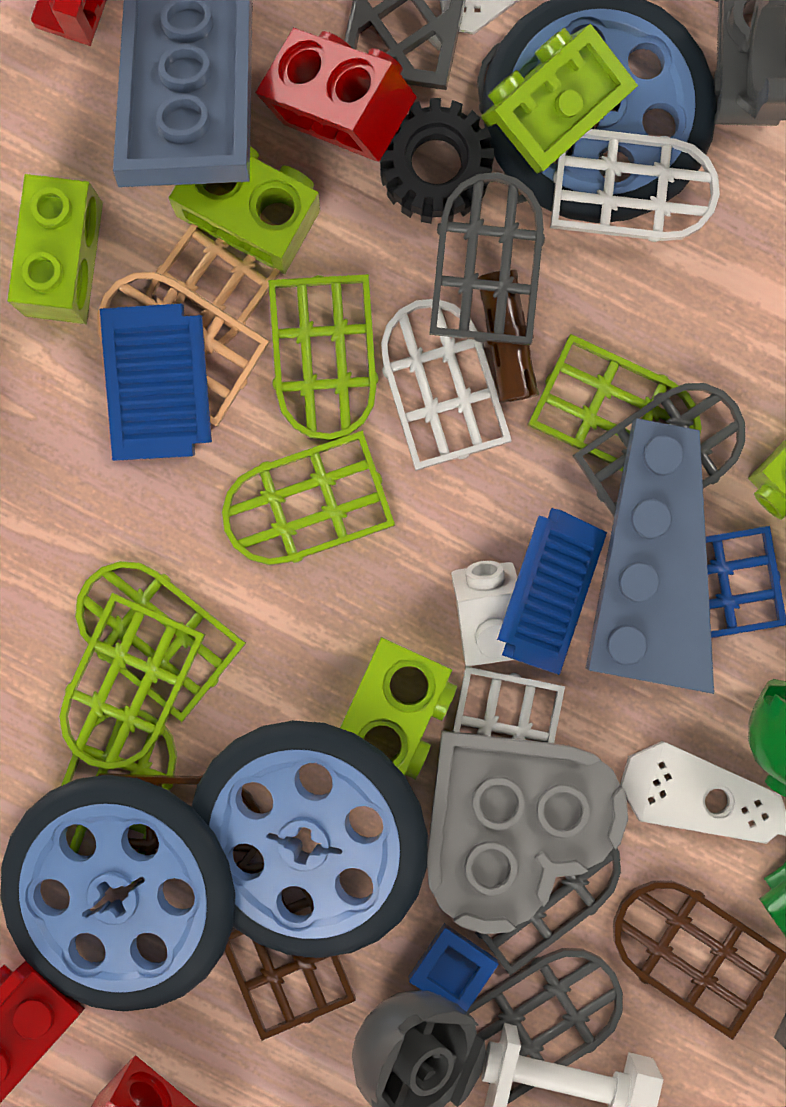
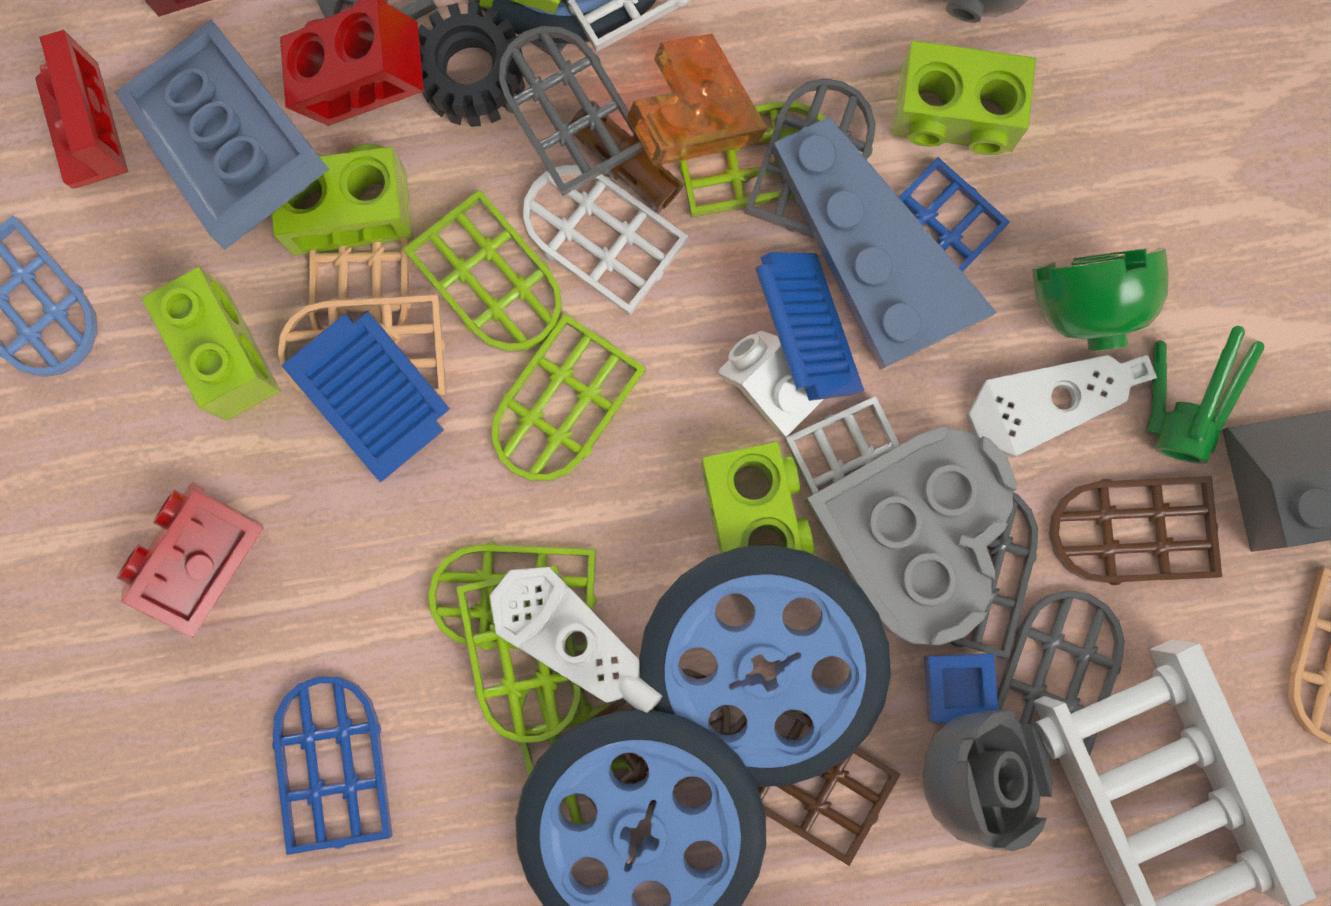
camera: 30 degrees left, 5 degrees down
(167, 680) = (551, 625): none -> white piece
(607, 347) = (704, 111): none -> clear orange plate

